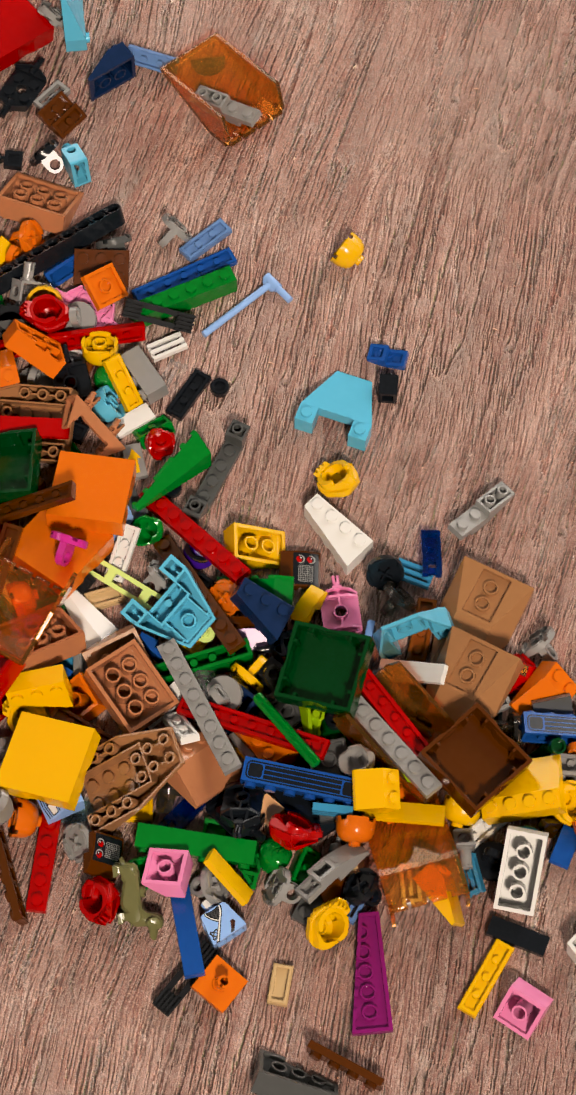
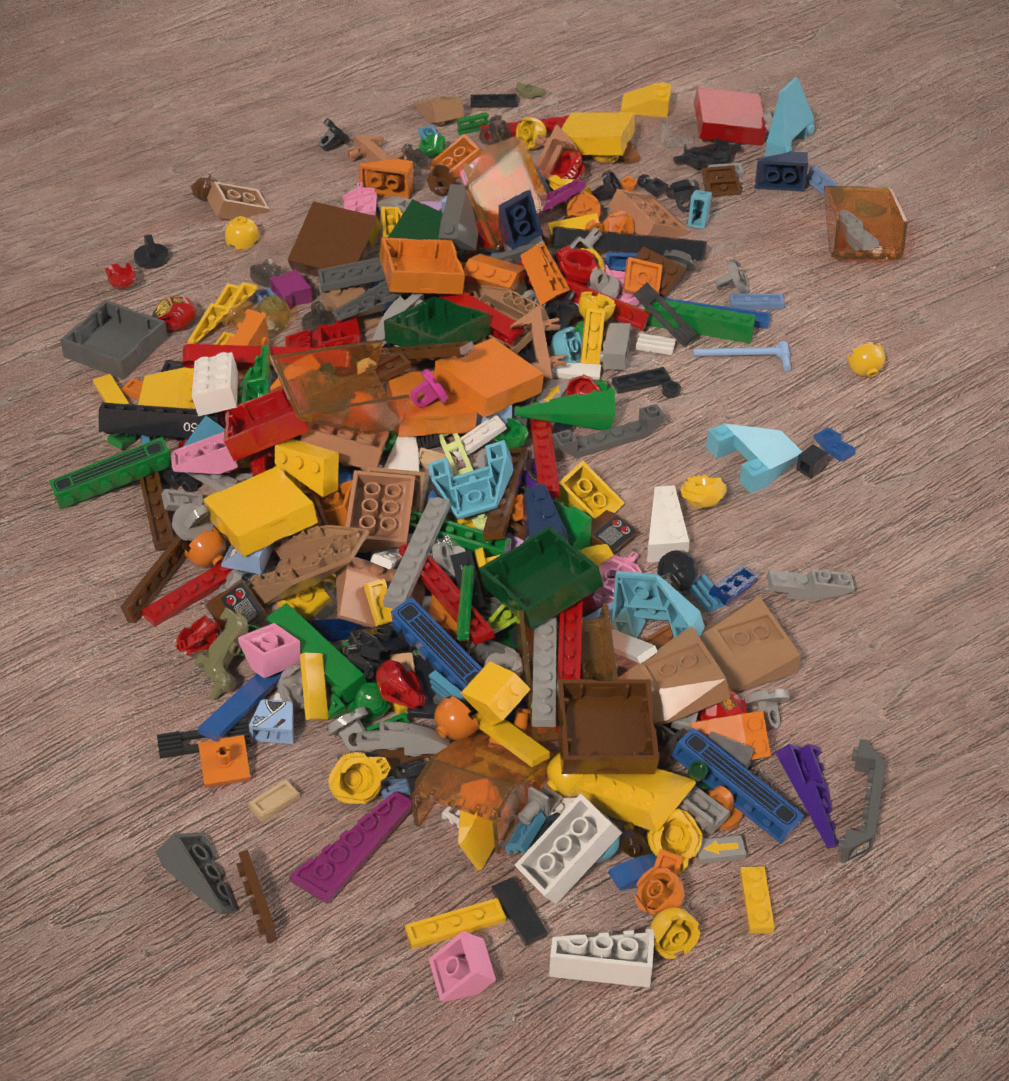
camera: 40 degrees right, 20 degrees down
(210, 769) = (375, 594): none -> yellow plate
(244, 695) = (459, 561): none -> black plate

